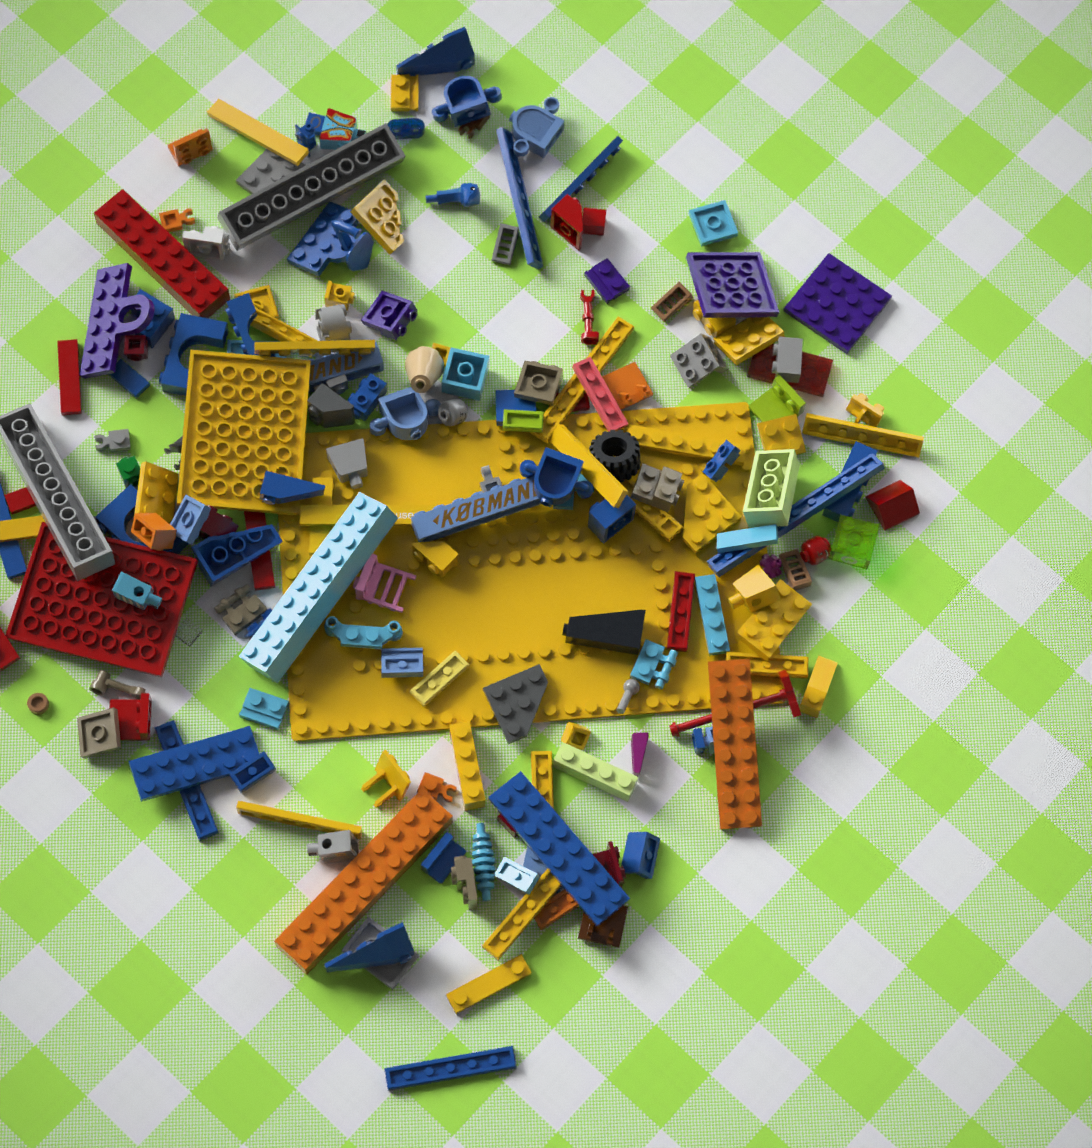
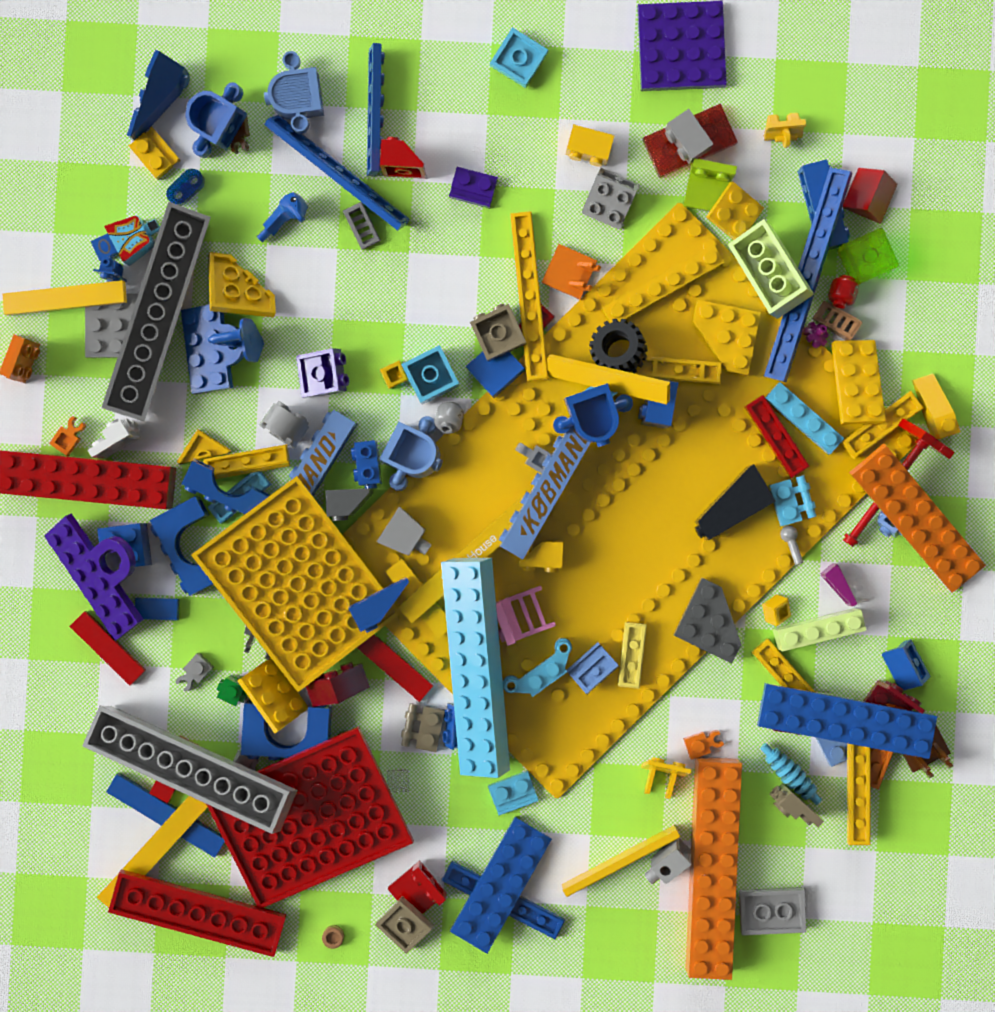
camera: 30 degrees left, 20 degrees up
(103, 682) = (368, 878): dark tan brick -> none
(127, 588) = (335, 801): medium azure torso -> none
(136, 351) = (140, 581): dark red brick -> none
(153, 531) = (302, 734): orange brick -> none
(190, 519) = (322, 702): medium blue plate -> none
(230, 552) = (376, 695): blue wedge -> none
(252, 772) = (551, 854): blue slope -> none
(305, 348) = (283, 469): yellow plate -> none
(337, 384) = (333, 474): light grey plate -> none
(339, 294) = (273, 391): yellow brick -> none
(389, 948) = (778, 916): blue wedge -> none
(423, 368) = (395, 403): tan cone -> none
(441, 858) = (756, 796): blue panel -> none
(450, 1068) = (897, 952): blue tile -> none
(467, 765) = (714, 709): yellow brick -> none
(488, 984) = (873, 864): yellow plate -> none
(516, 875) = (829, 767): plate -> none
(523, 421) = (515, 378): lime tile -> none
(588, 337) = (502, 252): red piece -> none
(594, 221) = (419, 140): red panel -> none
(600, 395) = (558, 301): coral plate -> none
(657, 487) = (674, 345): dark tan plate -> none
(676, 307) = (548, 144): medium nougat slope -> none
(698, 741) = (878, 535): blue tile -> none
(715, 467) = (705, 280): blue hinge -> none
(732, 284) = (586, 105): dark purple plate -> none
(747, 538) = (786, 331): medium azure tile -> none
(748, 338) = (635, 141): yellow plate -> none
(754, 590) = (827, 372): yellow torso -> none
(868, 435) = (800, 153): yellow plate -> none

